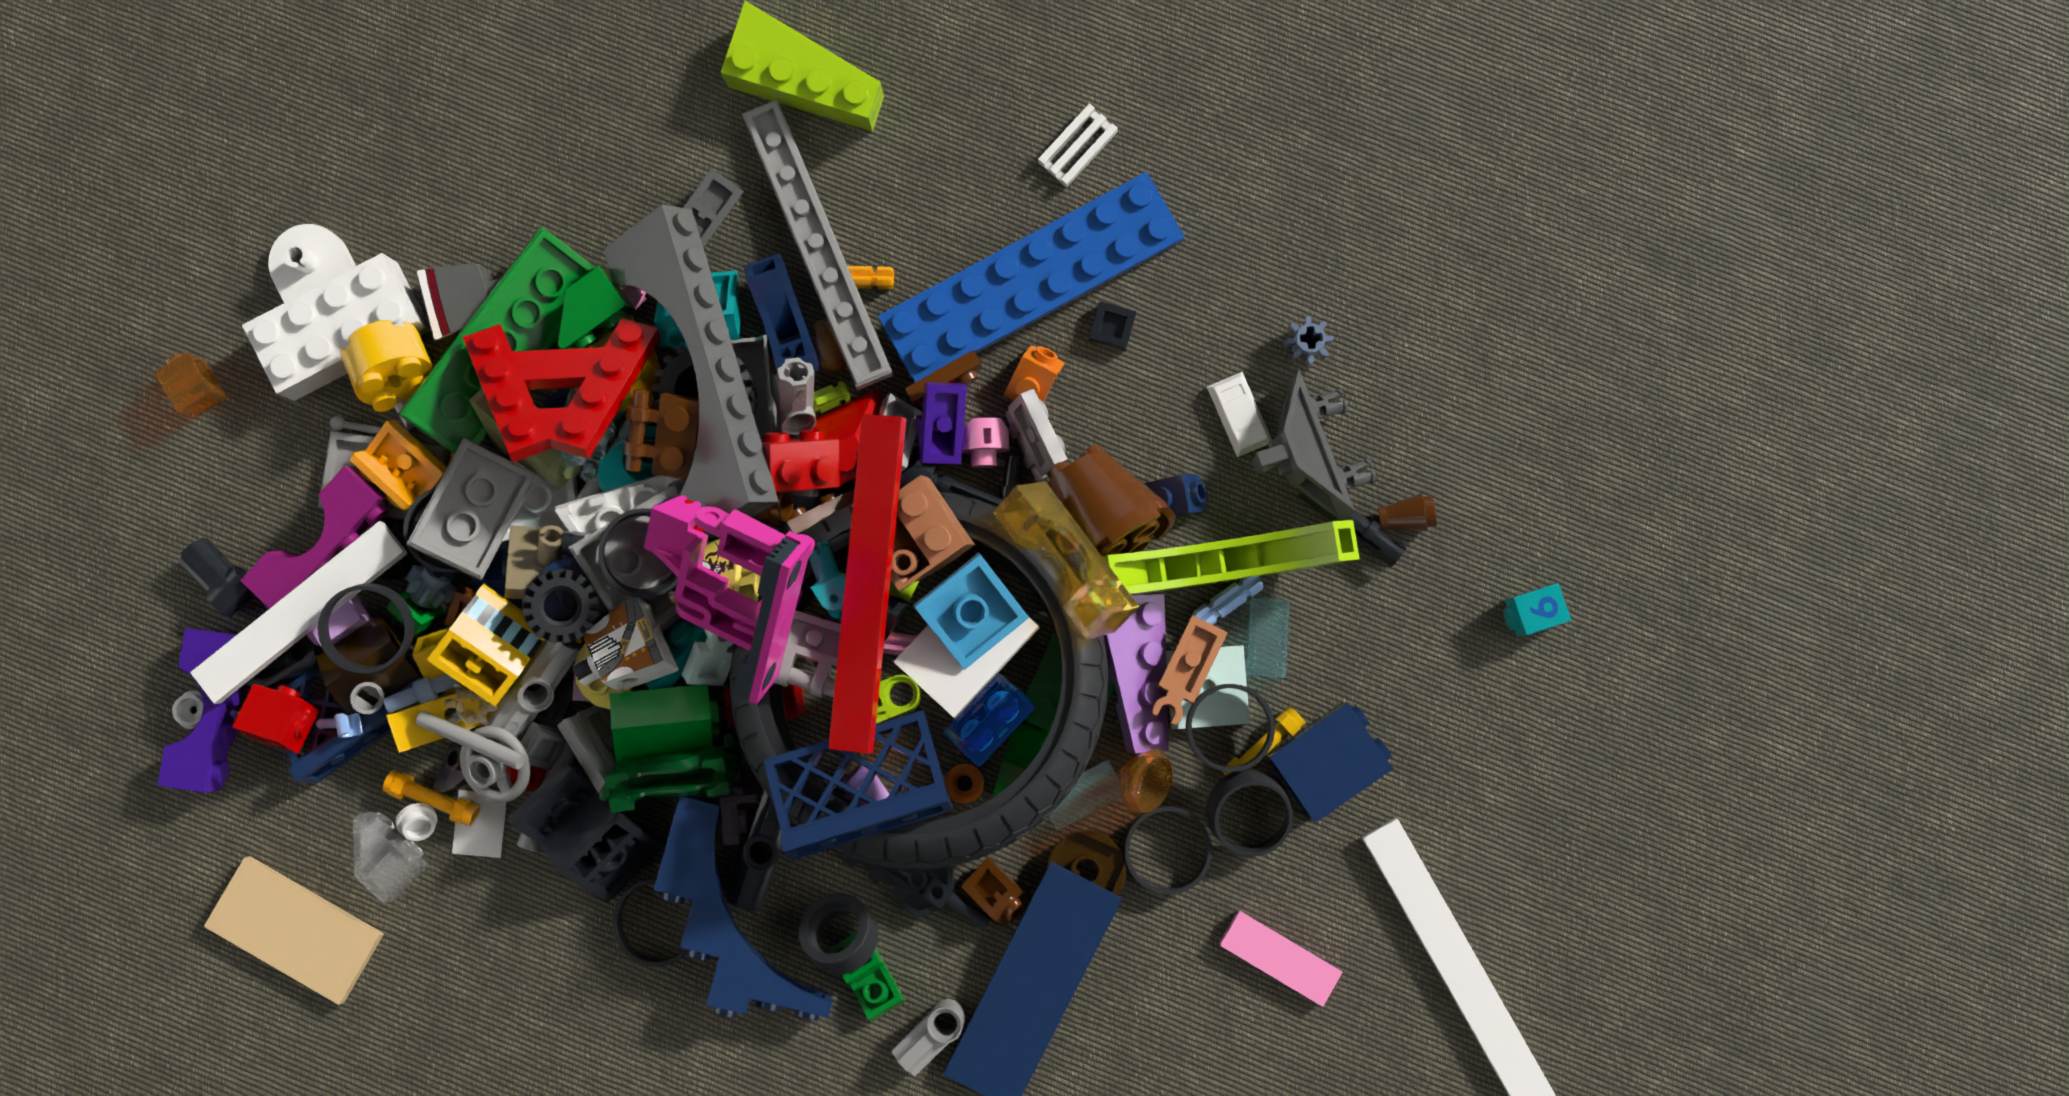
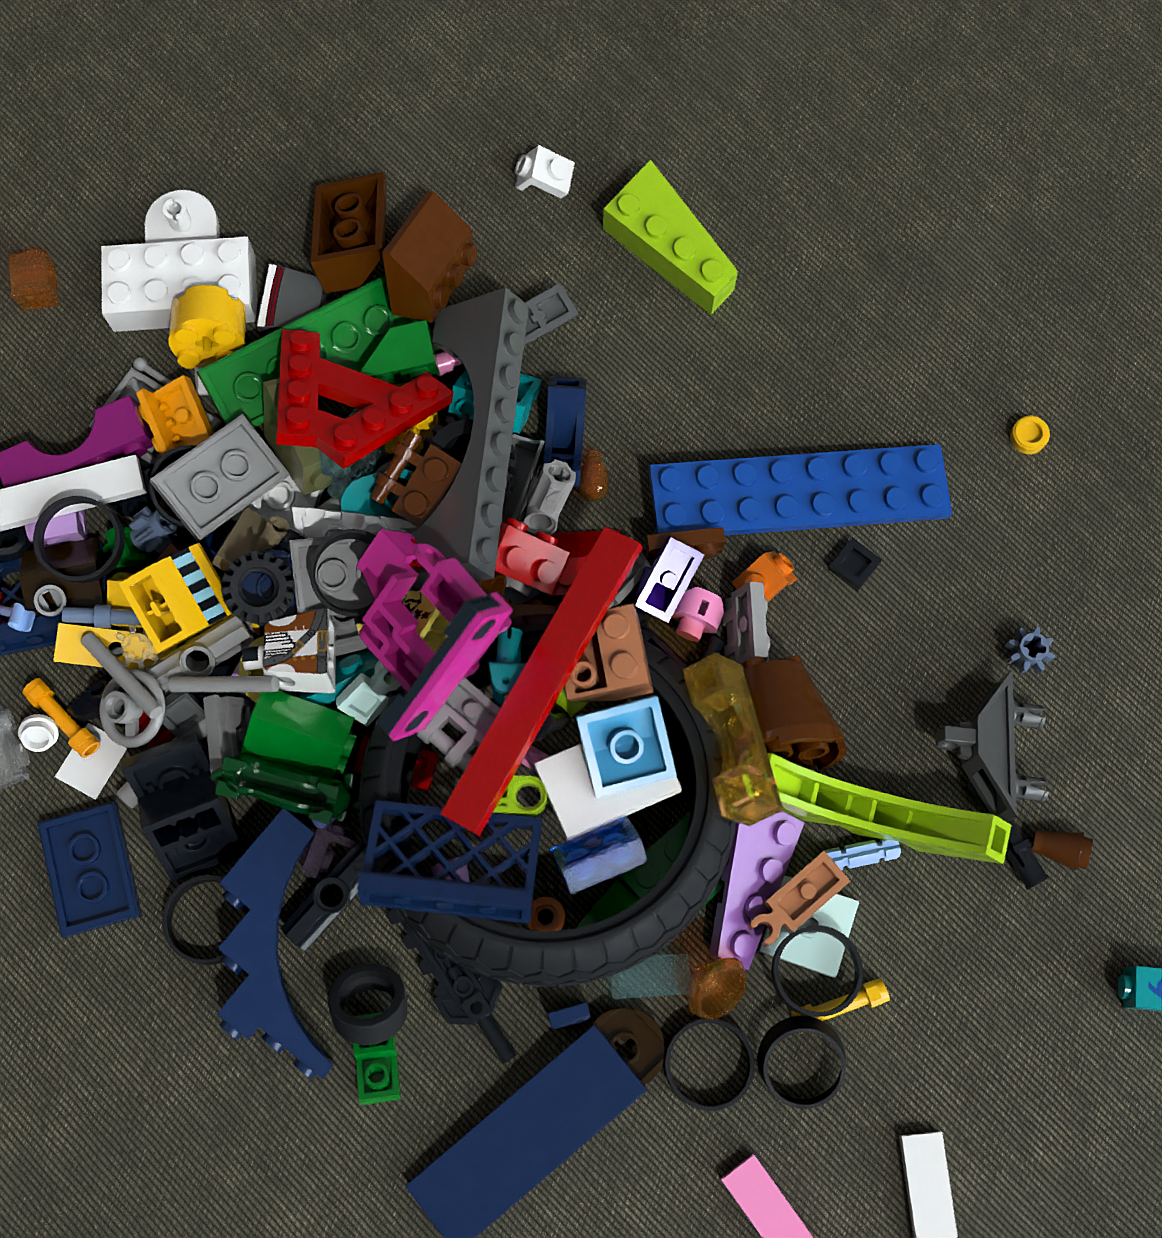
camera: 20 degrees right, 10 degrees down
(478, 204) = (348, 230): none -> reddish brown slope
(526, 923) = (89, 869): none -> dark blue tile
(571, 202) = (427, 259): none -> reddish brown slope
(571, 707) = (224, 684): none -> light grey bar
(645, 53) = (545, 171): none -> white bracket
(817, 245) = (622, 389): light grey tile -> none
(830, 397) = (576, 520): lime piece -> none
(866, 277) = (644, 428): light orange axle -> none
(928, 1037) = (406, 1144): light grey piece -> none
(996, 892) = (531, 1033): reddish brown bracket -> none
(1024, 863) = (569, 1016): none -> dark blue tile
(1099, 121) = (913, 386): white tile -> none
(1182, 493) = (860, 737): dark blue bracket -> none
(1228, 124) = (1029, 435): none -> yellow tile
(1239, 414) = (939, 690): white tile -> none
(1267, 637) = (884, 905): clear light blue tile -> none
(1330, 761) = (899, 1047): dark blue brick -> none

